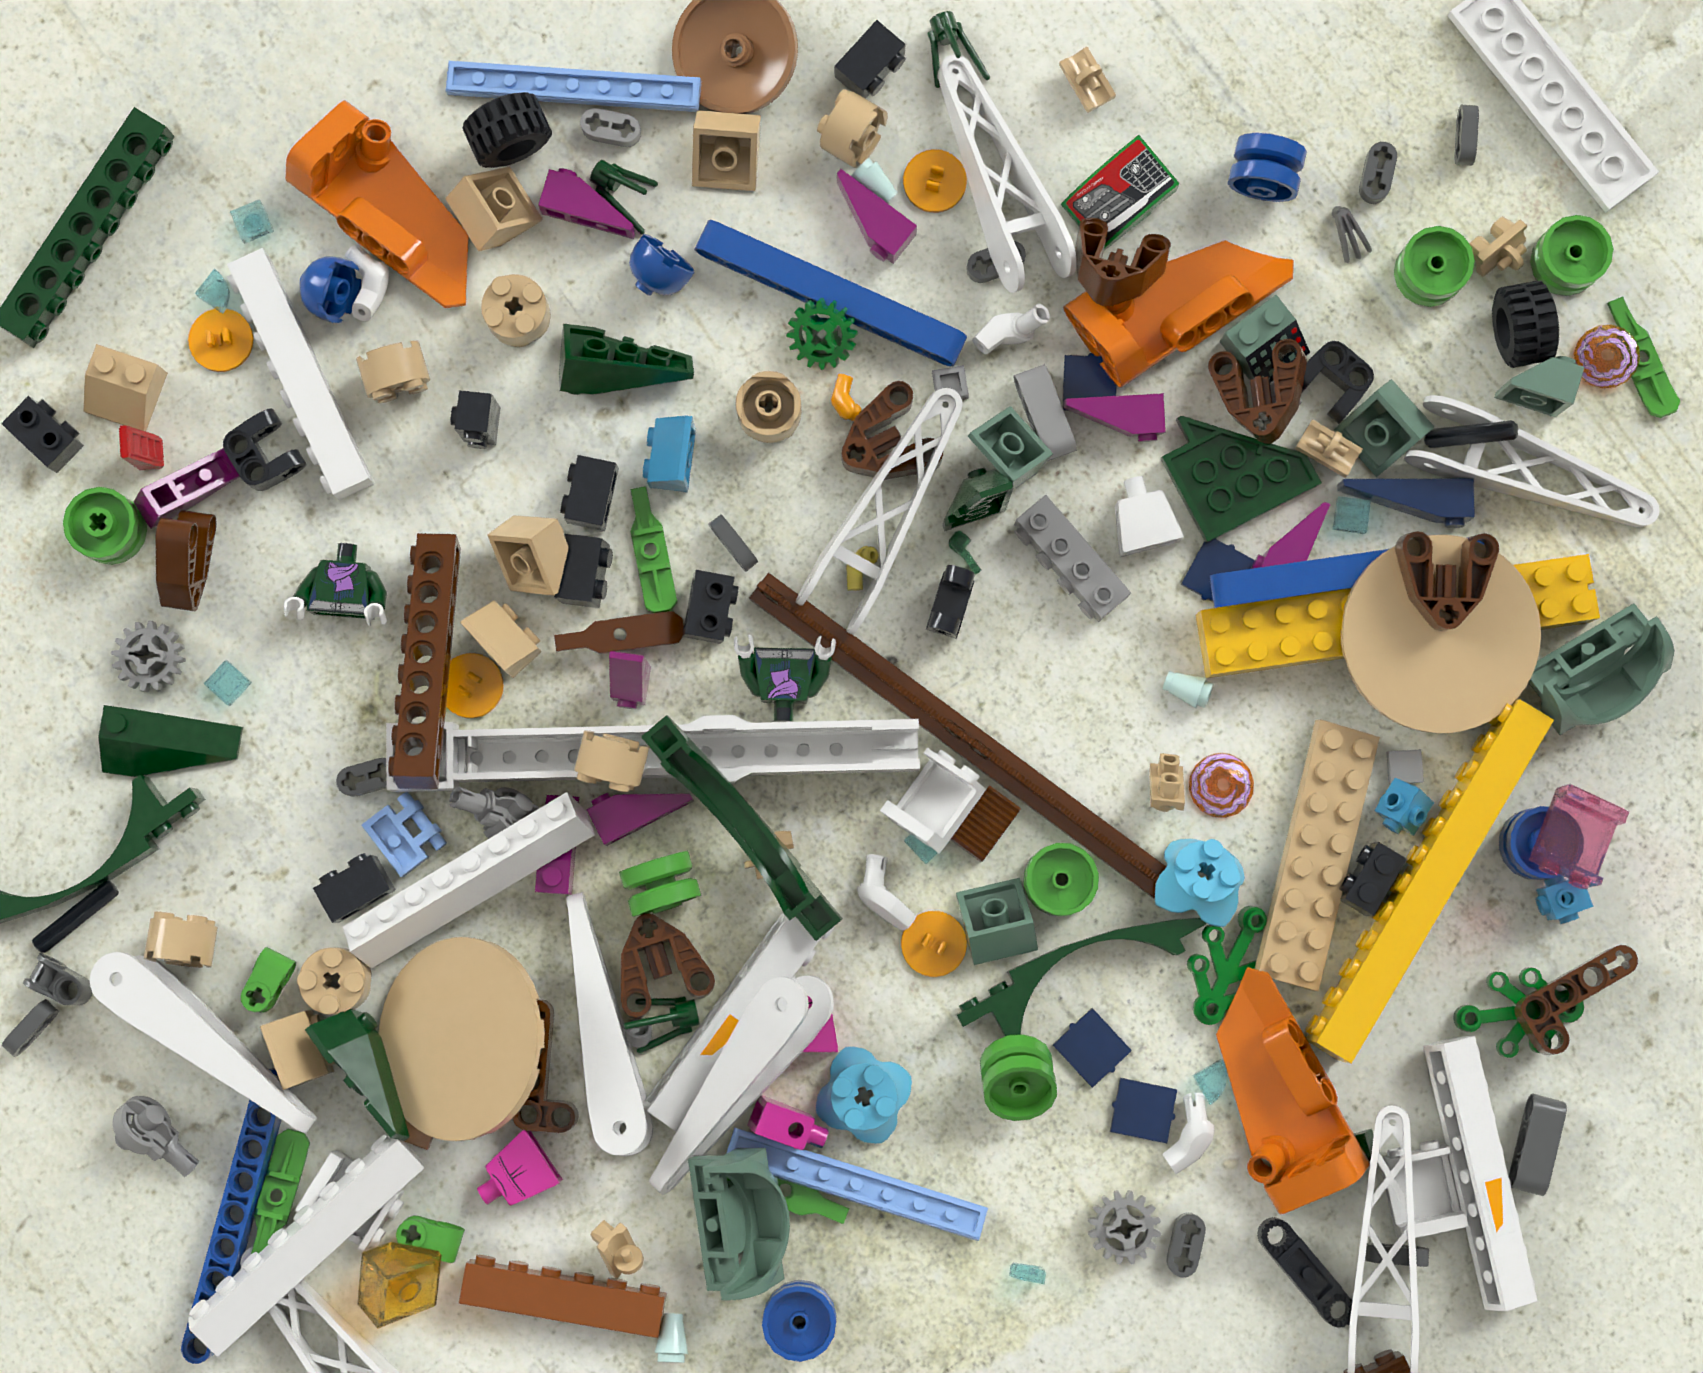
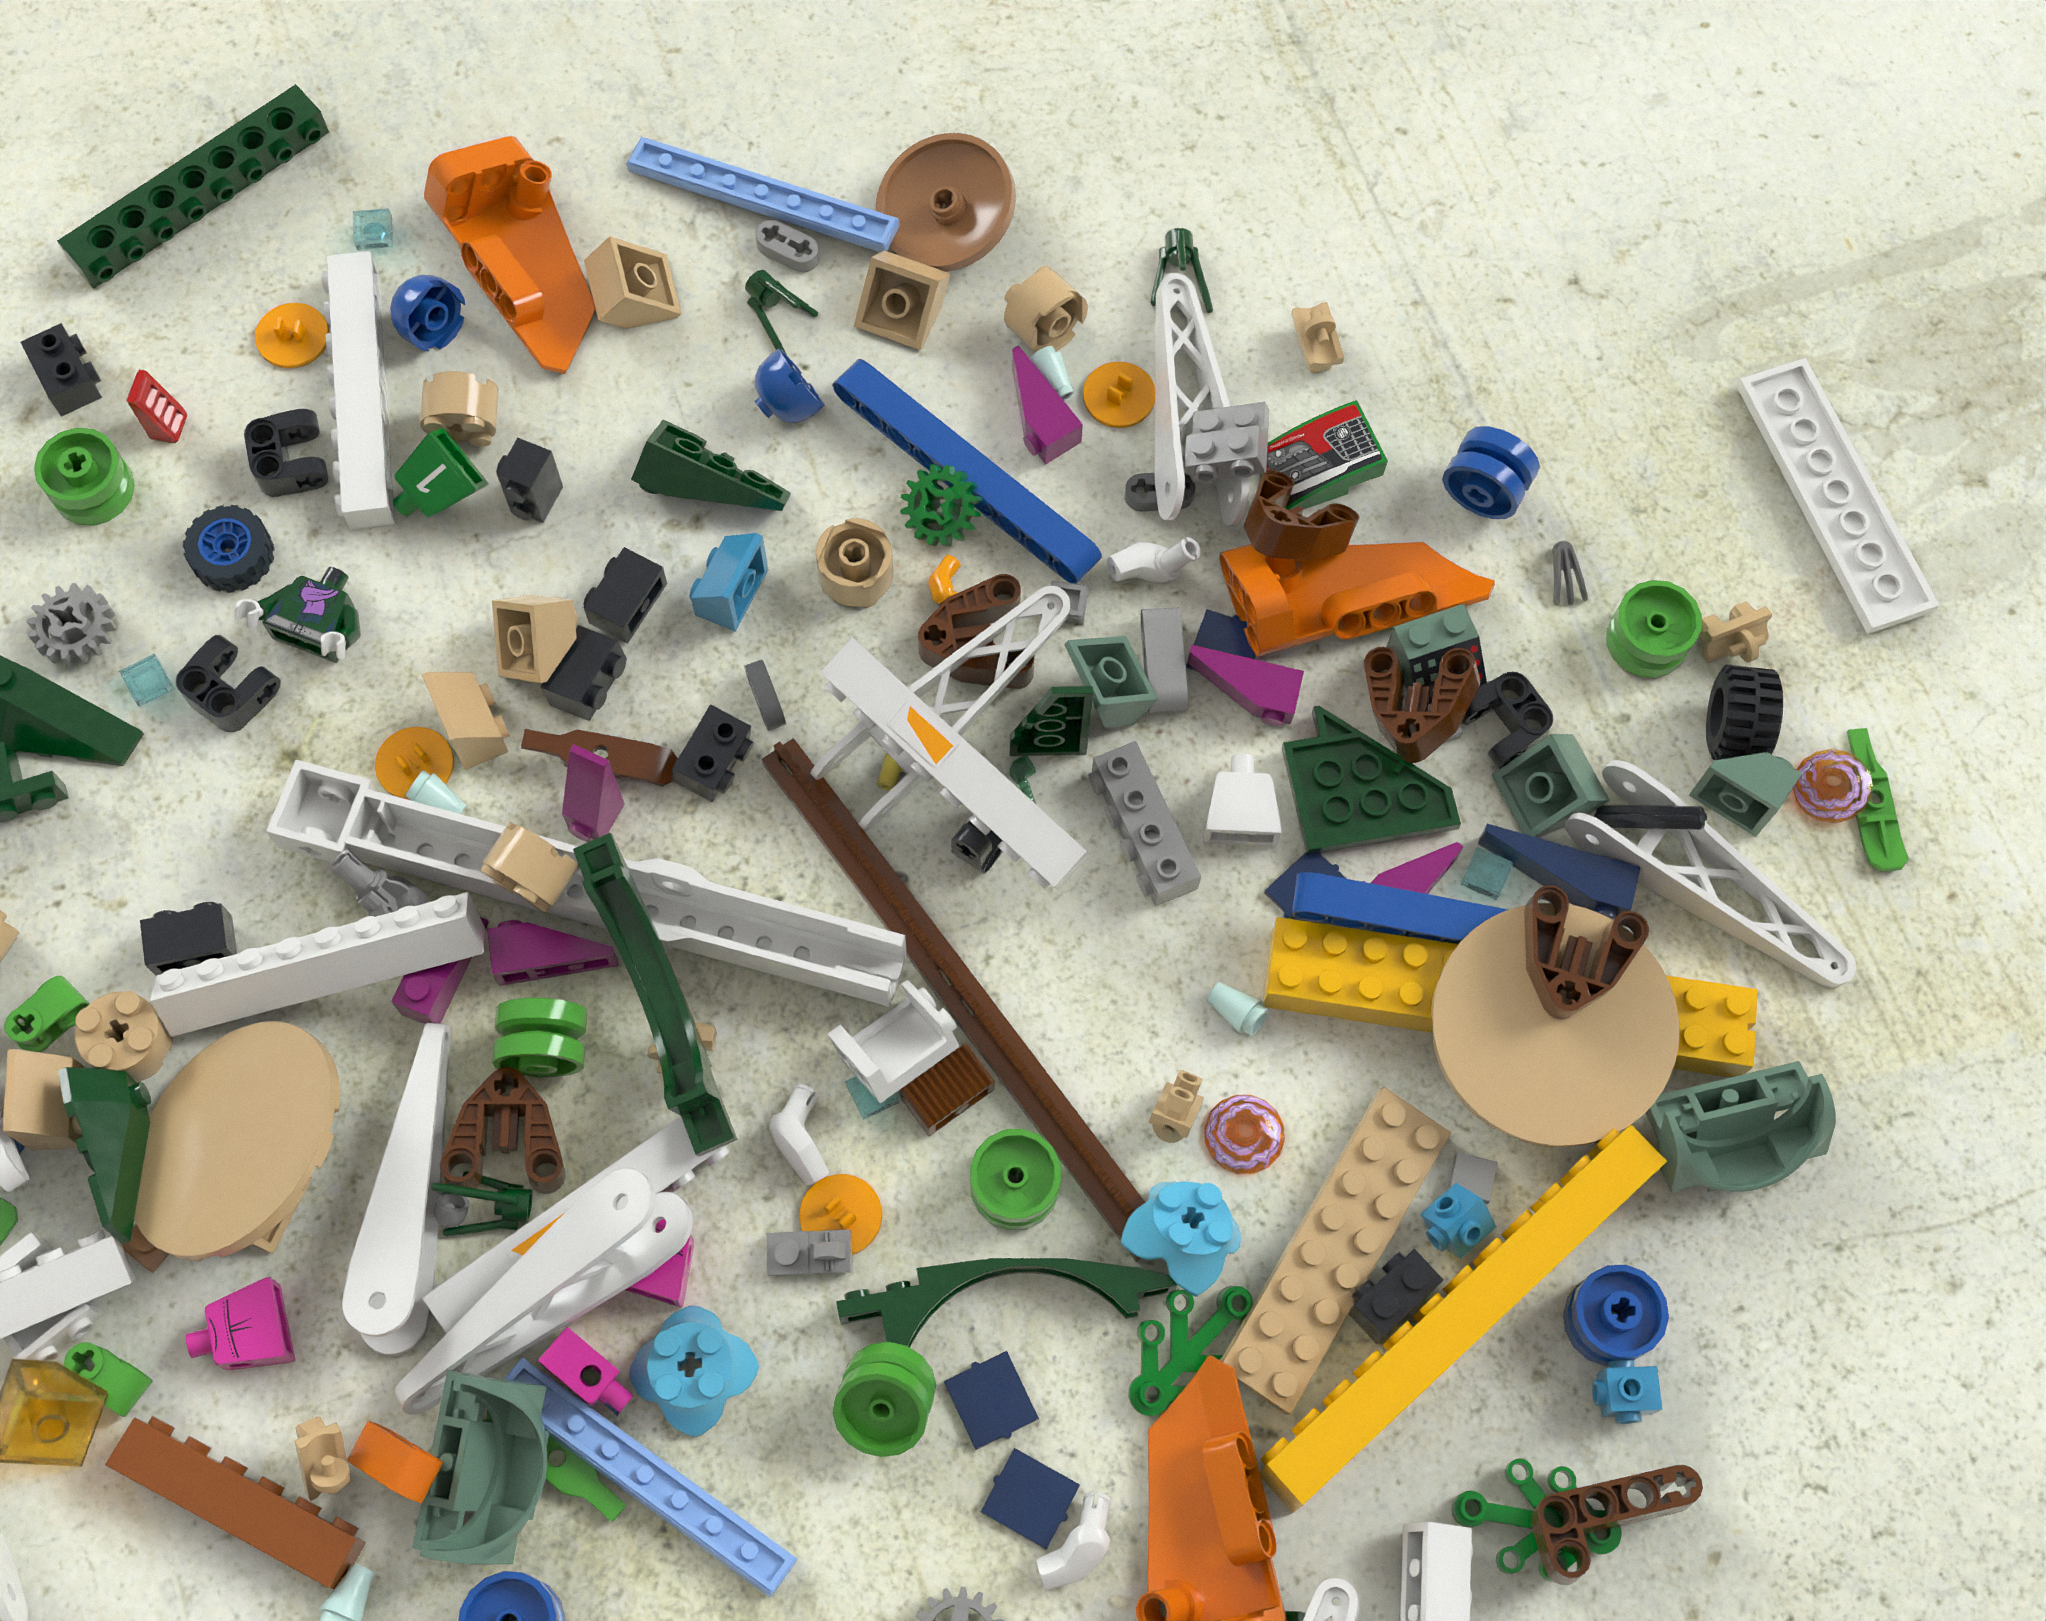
camera: 15 degrees right, 15 degrees down
(122, 387) = (167, 345): tan slope -> none
(183, 558) = (149, 529): reddish brown connector -> none
(185, 487) = (185, 465): magenta slope -> none
(215, 291) = (305, 285): clear light blue tile -> none
(244, 532) = (230, 529): none -> black wheel
(274, 658) = (207, 667): none -> black piece
(359, 770) = (249, 835): dark grey beam -> none
(374, 282) = (474, 324): white arm -> none
(395, 839) = (259, 903): light blue plate -> none
(400, 439) = (436, 476): none -> green torso
(423, 769) = (366, 711): reddish brown brick -> none
(500, 711) = (434, 792): none -> light aqua cone
(505, 295) = (615, 389): tan brick -> none
(507, 130) = (673, 208): black tyre -> none
(538, 1098) = (323, 1211): reddish brown beam -> none
(575, 201) = (721, 303): magenta slope -> none
(653, 570) = (669, 699): bright green piece -> none
(672, 1235) = (394, 1461): none -> orange beam
(784, 674) = (772, 851): torso -> none
(870, 60) = (1088, 252): black brick -> none
(915, 570) = (955, 764): none -> white brick
(920, 981) = (809, 1252): none -> light grey hinge
(997, 921) = (923, 1209): sand green slope -> none
(1046, 212) = (1228, 443): none -> light grey plate
(1212, 1080) = (1126, 1487): clear light blue tile -> none
(1328, 448) = (1479, 788): tan hips -> none
(1371, 171) = (1610, 517): dark grey beam -> none
(1466, 135) = (1727, 508): dark grey beam -> none
(1572, 255) = (1818, 661): bright green wheel -> none
(1576, 835) = (1662, 1310): clear pink panel -> none

